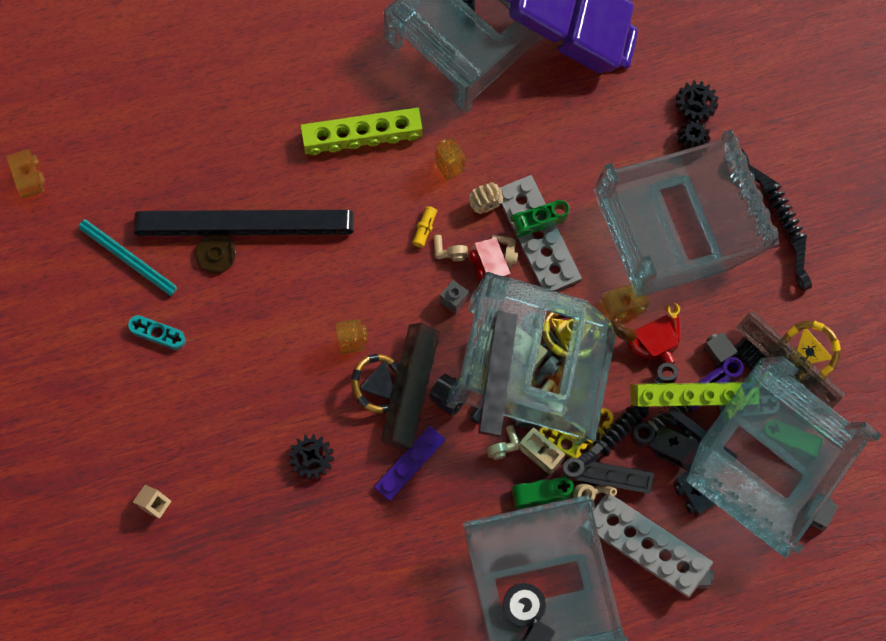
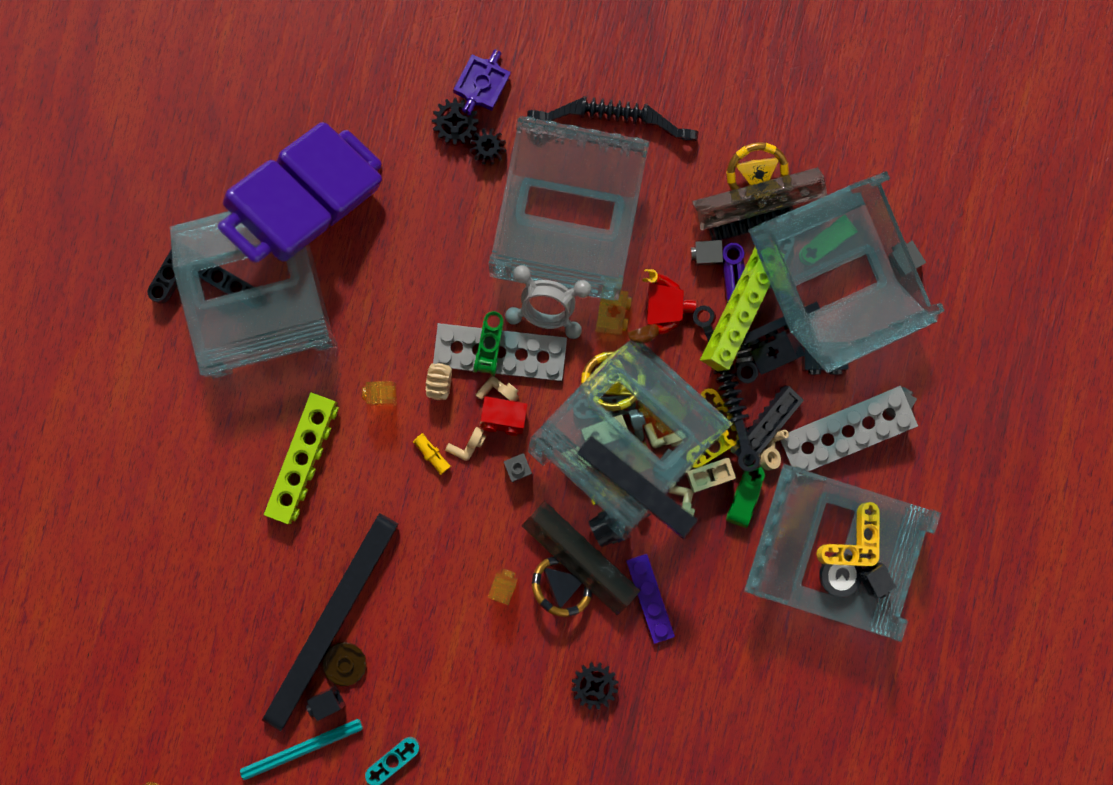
camera: 55 degrees left, 15 degrees up
(176, 251) = (325, 703): none -> black brick
(561, 607) = (863, 545): none -> yellow beam
(615, 242) = (549, 289): none -> light grey piece
(740, 104) = (482, 82): none -> dark purple plate

